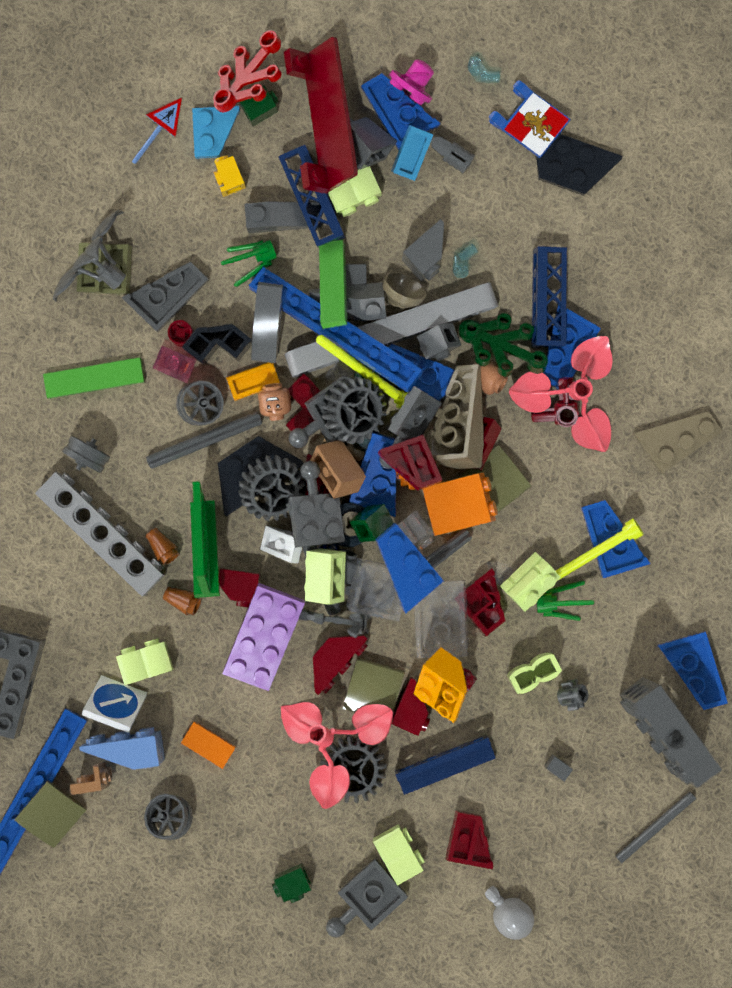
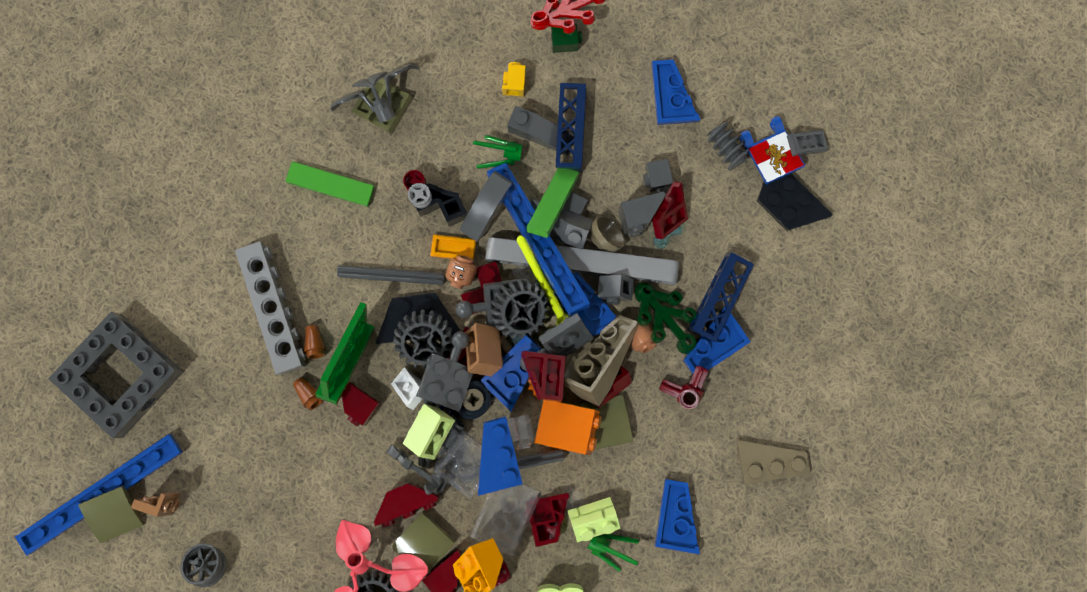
camera: 25 degrees right, 5 degrees down
(86, 454) = (291, 239): dark grey wheel -> none
(114, 704) = (208, 450): tile -> none
(128, 750) = (199, 493): medium blue slope -> none
(145, 662) = (251, 429): yellowish green brick -> none
(166, 118) = (489, 15): piece -> none
(166, 296) = (417, 149): dark grey wing -> none
(174, 364) = (398, 205): clear pink slope -> none
(191, 344) = (416, 192): none -> light grey wheel
(199, 403) = (401, 244): dark grey wheel -> none
(208, 744) = (267, 521): orange tile -> none
(212, 130) = (519, 40): dark azure wing -> none
(263, 637) = (355, 456): plate -> none
(328, 115) = (615, 70): dark red bracket -> none
(355, 192) = (606, 138): yellowish green brick -> none
(370, 142) = (633, 104): dark grey torso -> none
(371, 522) = (489, 406): dark green brick -> none
(412, 152) = (666, 131): dark azure tile -> none
(414, 81) = (696, 76): dark pink plate -> none
(426, 204) = (658, 176): none -> dark grey brick
(446, 149) = (695, 142): dark grey hinge -> none
(457, 235) = (671, 212): none -> dark red wing
(480, 73) = (750, 96): clear light blue arm -> none
(482, 137) = (727, 146): none -> dark grey piece
(561, 94) = (807, 143): none -> dark grey plate
(592, 359) = (732, 365): coral plant -> none
(629, 531) = (695, 519): neon yellow piece -> none

